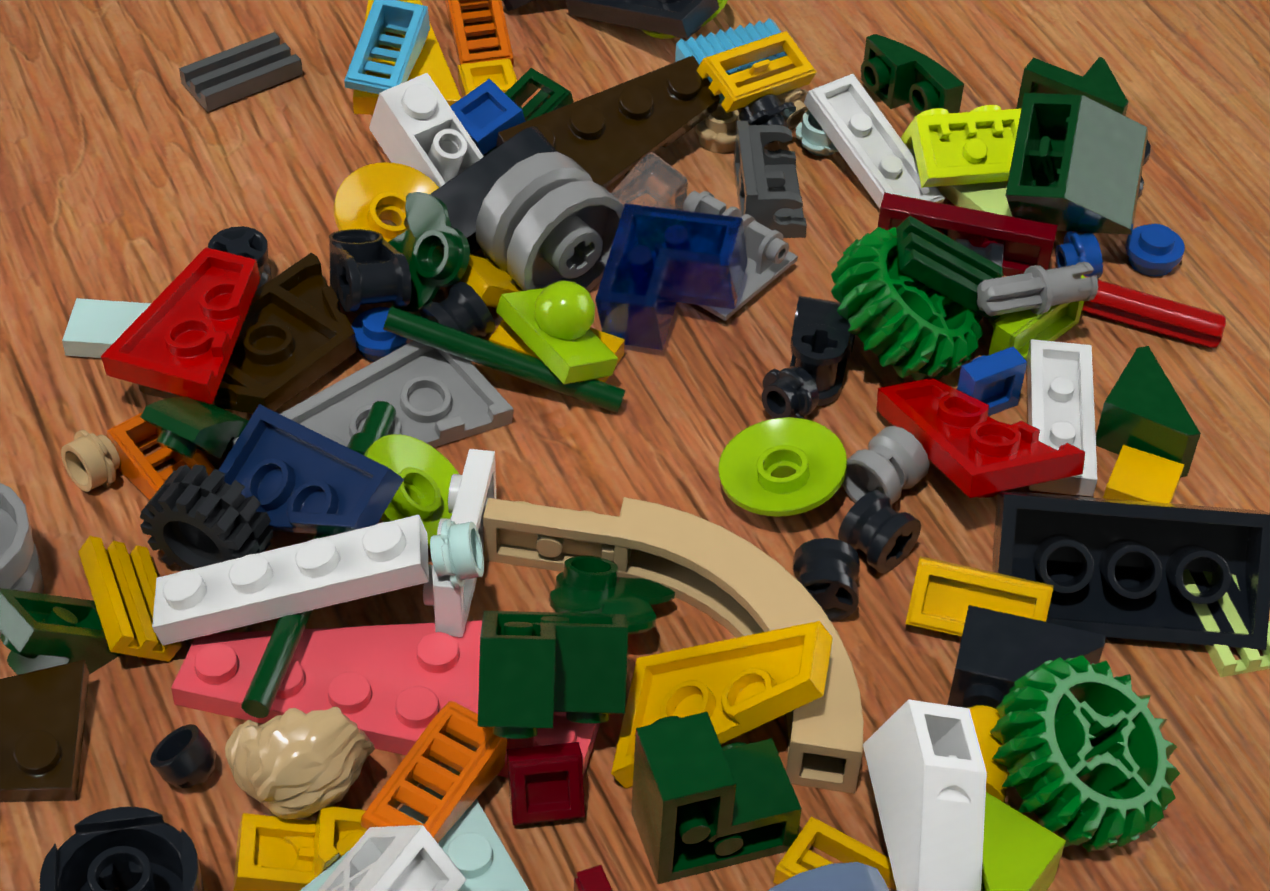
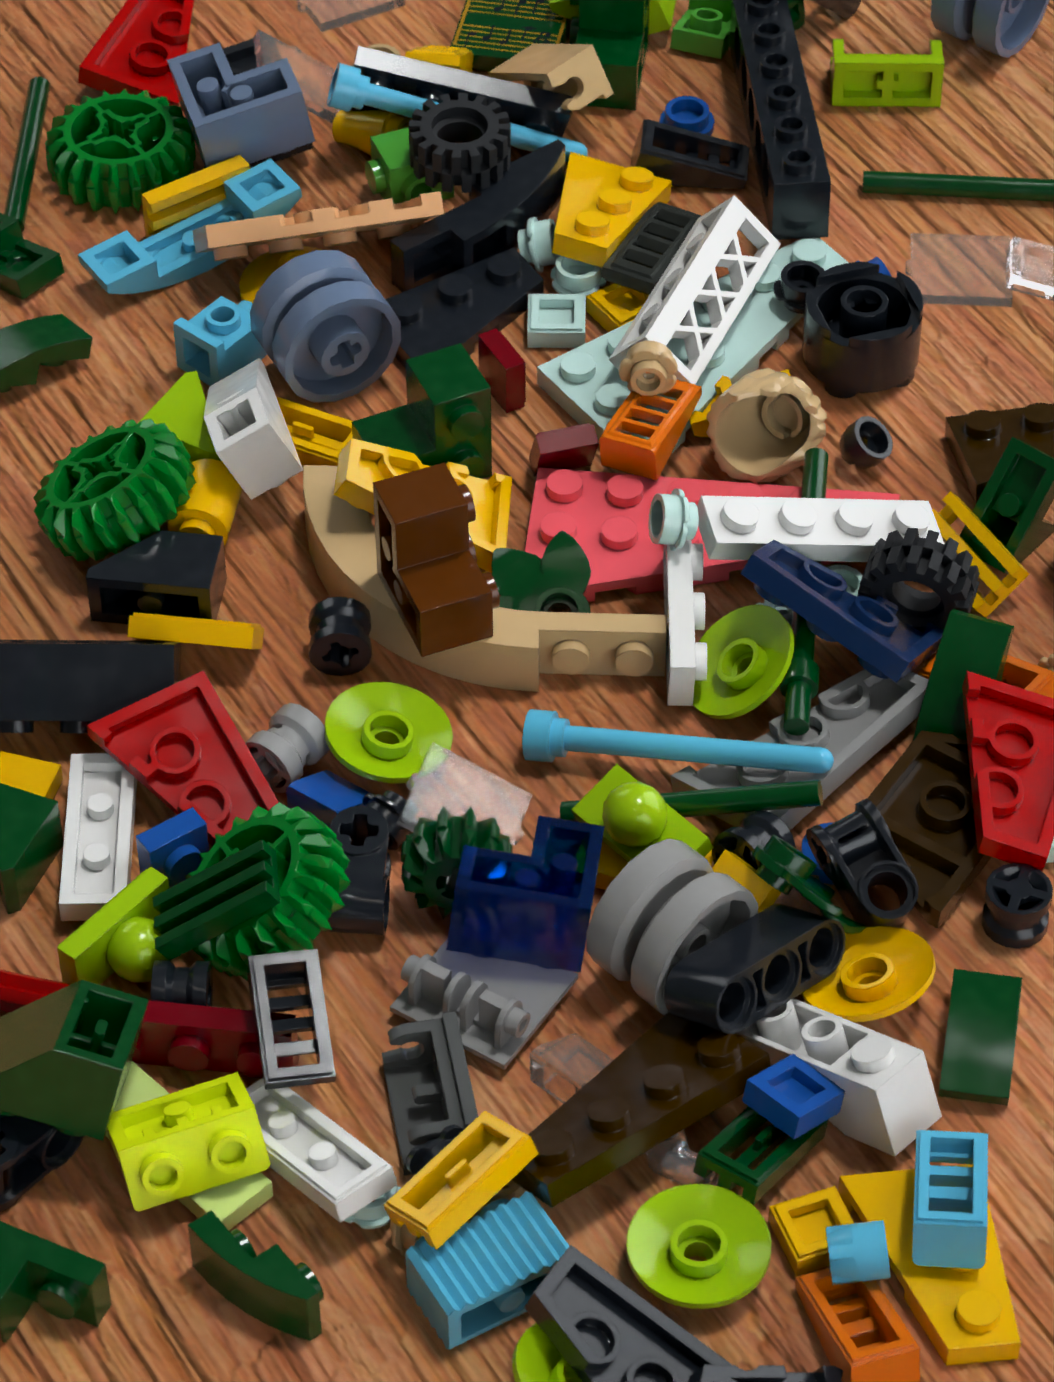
camera: 175 degrees right, 0 degrees up
(311, 178) = (980, 1037): none -> dark green slope
(427, 800) = (648, 358): none -> tan plate
(467, 36) = (858, 1252): none -> medium azure hose
(550, 665) = (591, 463): dark green brick -> none
(583, 60) = (702, 1223): none -> lime dish
(620, 455) = (551, 736): none -> medium azure piece
(715, 393) = (458, 785): none -> clear piece
(731, 318) = (435, 851): none -> dark green gear
(731, 533) = (431, 559): none -> reddish brown brick
(849, 417) = (324, 795): none -> blue slope
(879, 531) = (285, 680): black wheel -> none
(885, 184) = (288, 971): none -> slope
(1037, 289) = (121, 887): light grey axle -> none

